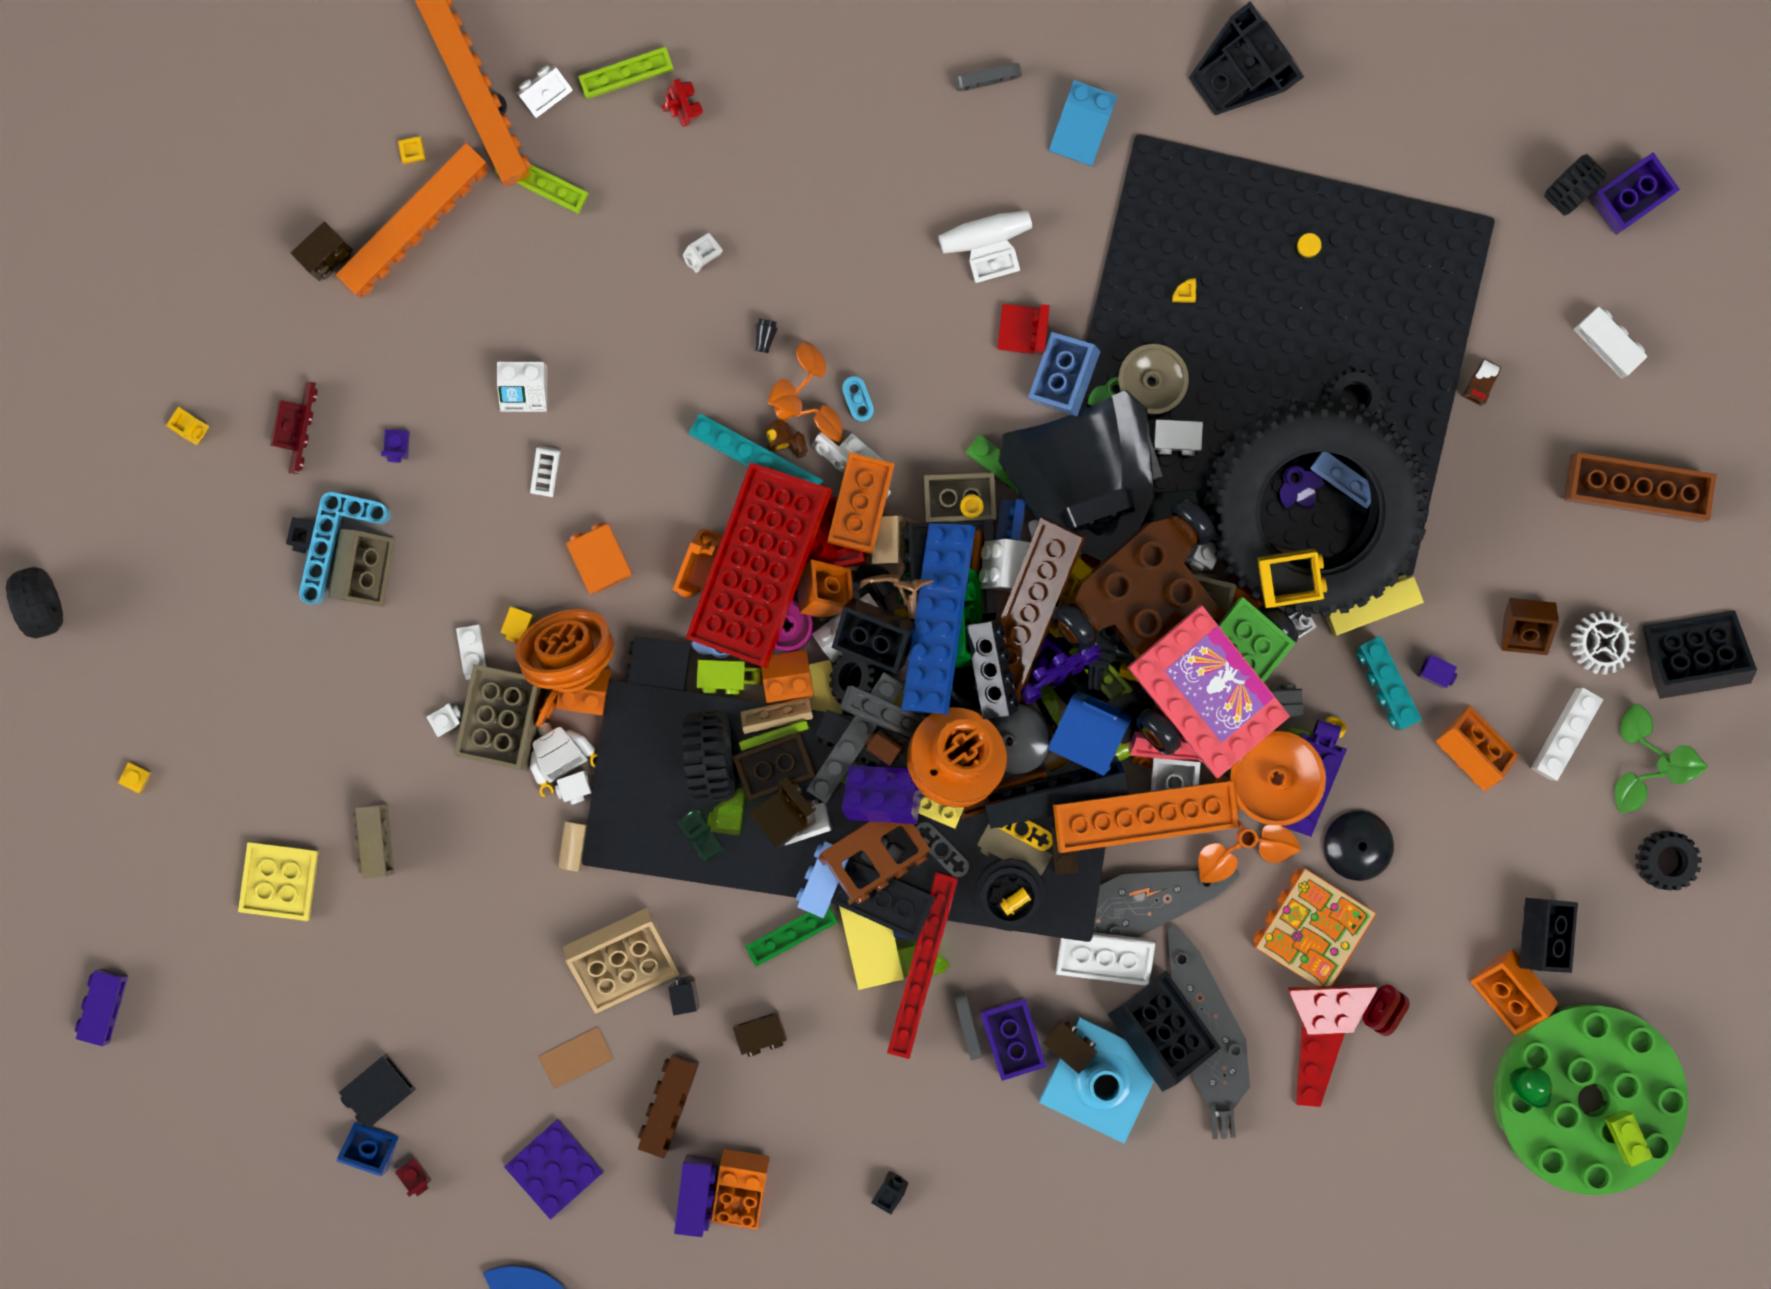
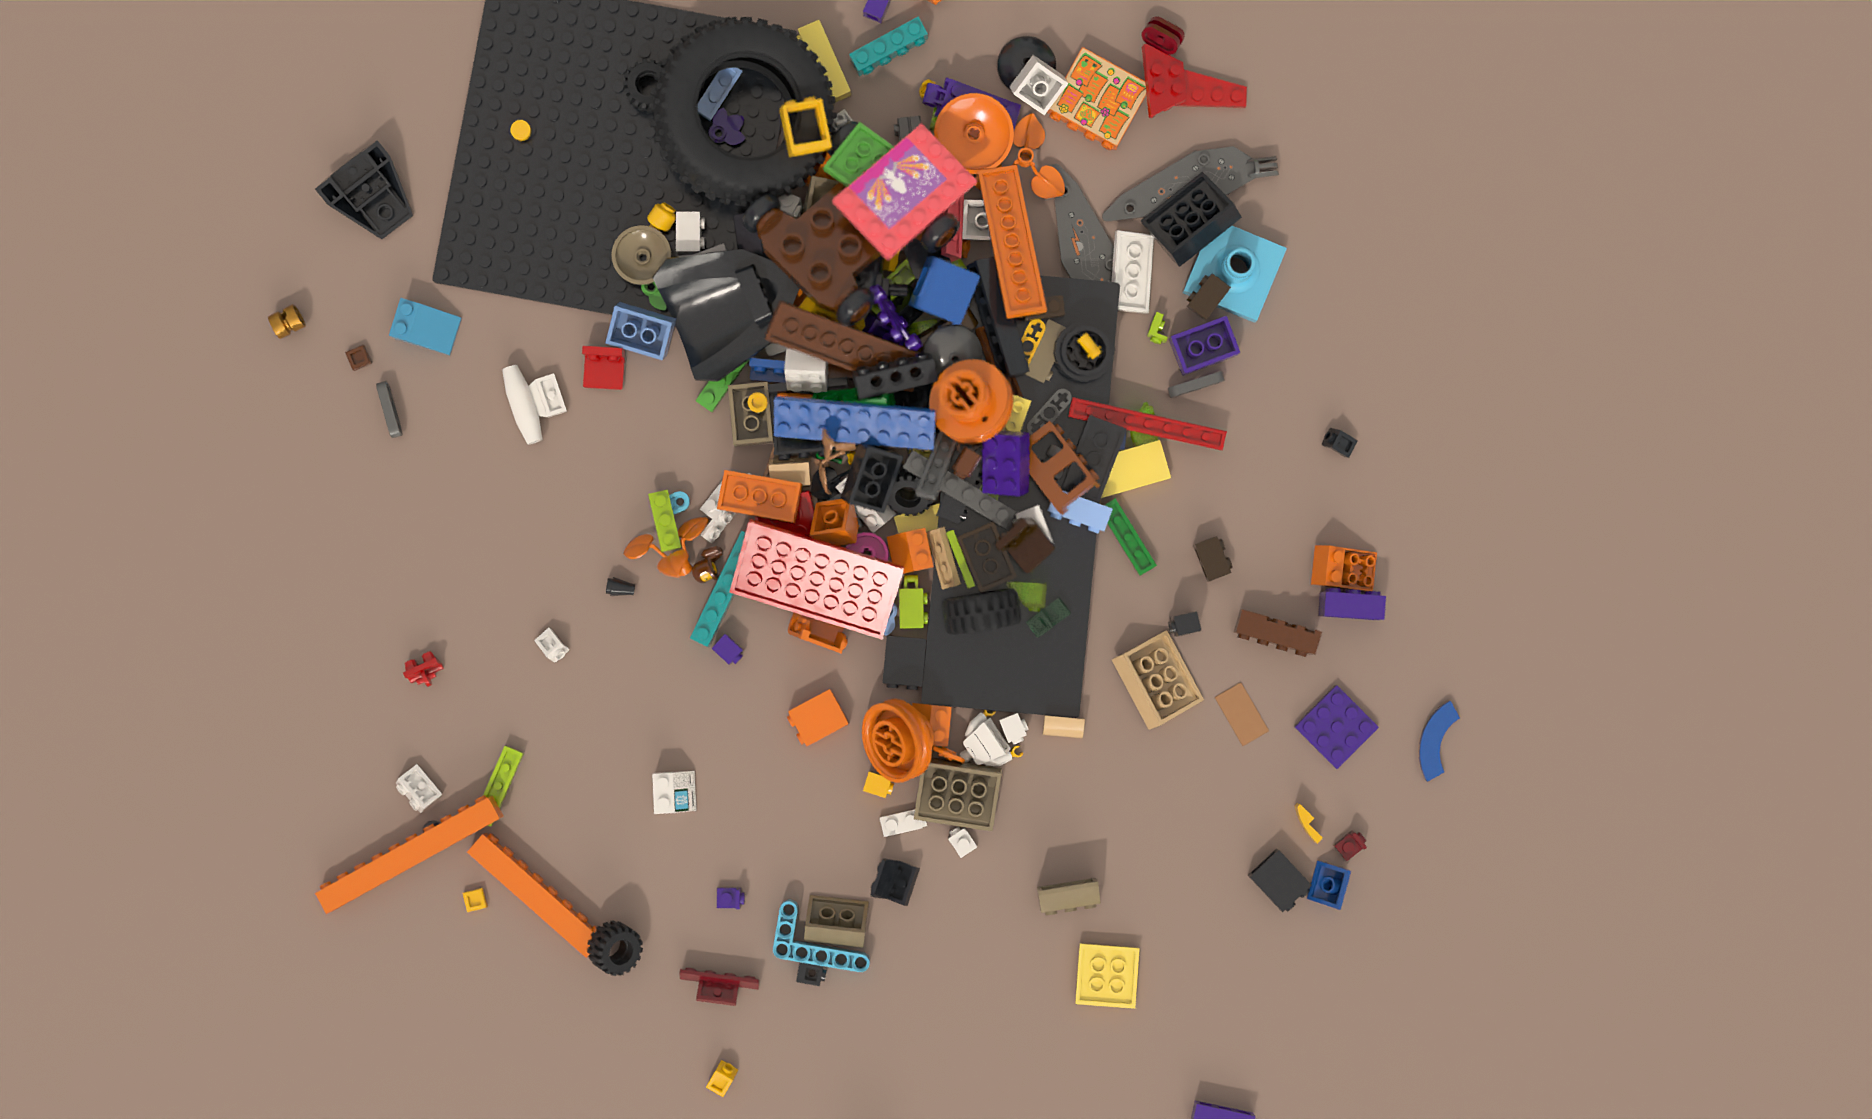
camera: 90 degrees left, 0 degrees up
(134, 777) = (1025, 1105): yellow plate -> none
(322, 252) = (566, 970): dark brown brick -> none
(333, 319) = (603, 941): none -> black tyre
(402, 638) = (894, 881): none -> black bracket
(446, 1125) = (1305, 818): none -> yellow slope
(537, 469) = (728, 766): white slope -> none
(626, 73) = (400, 719): lime plate -> none
(684, 458) = (728, 650): none -> dark purple brick
(839, 390) = (664, 520): none -> lime plate
(1040, 983) = (1157, 325): none -> lime bracket
(1051, 44) = (358, 357): none -> reddish brown tile
(1185, 292) = (565, 232): yellow tile -> none
(1197, 405) = (662, 217): none -> yellow head
(1333, 858) = (1038, 85): none -> white brick

